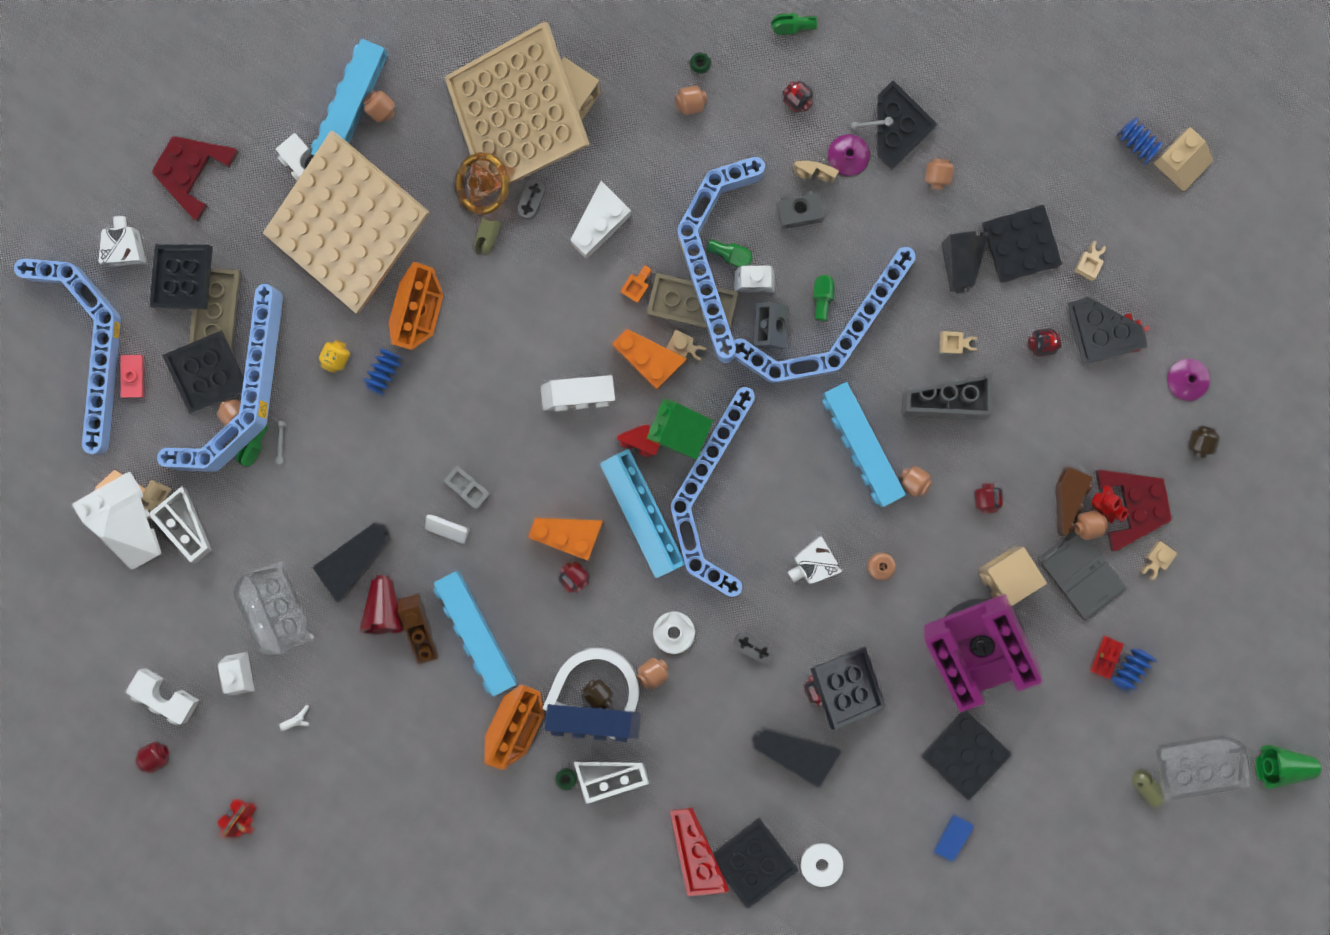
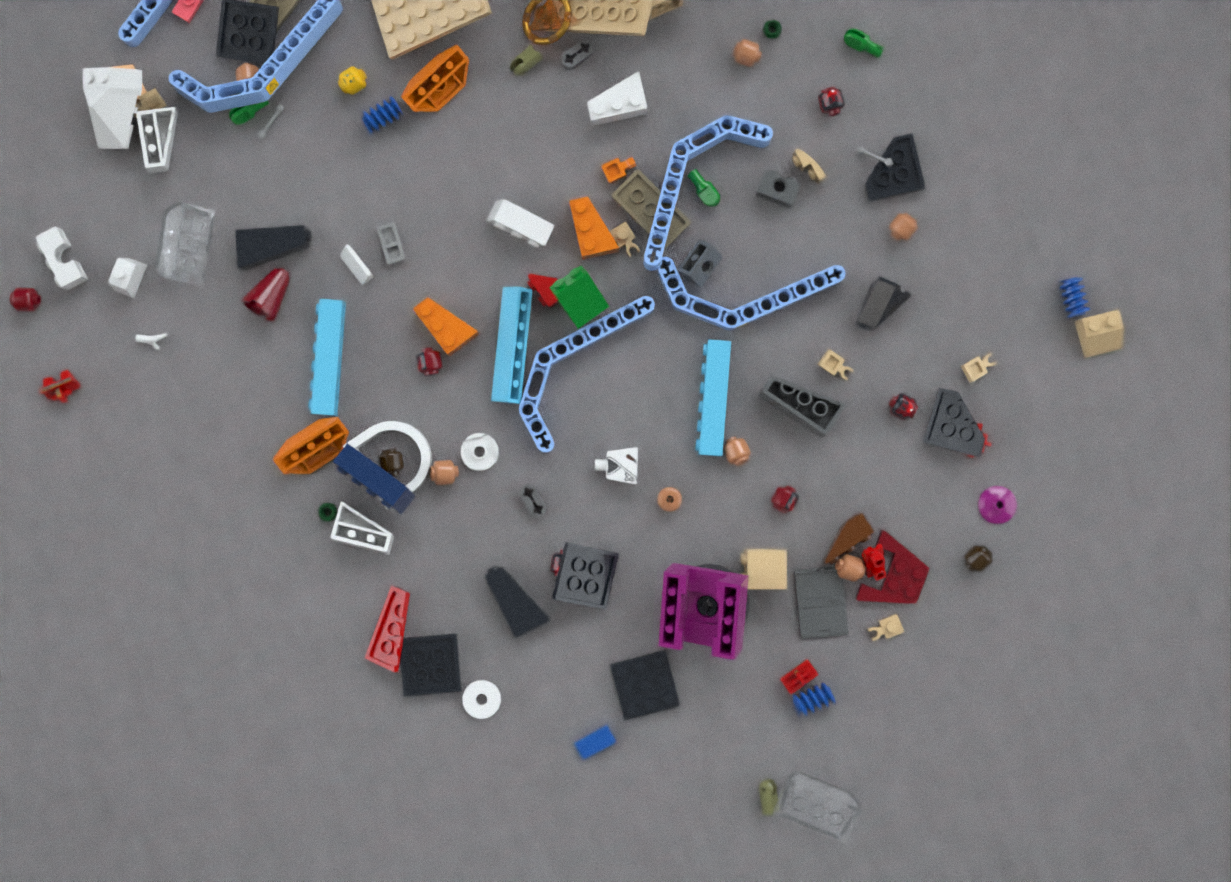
camera: 30 degrees right, 0 degrees up
(417, 628) = (286, 326): reddish brown slope -> none
(754, 279) = (710, 220): white torso -> none
(823, 295) = (755, 265): green arm -> none
(844, 164) = (838, 178): magenta dish -> none
(1022, 243) = (933, 320): black plate -> none
(1284, 767) = (884, 847): green cone -> none

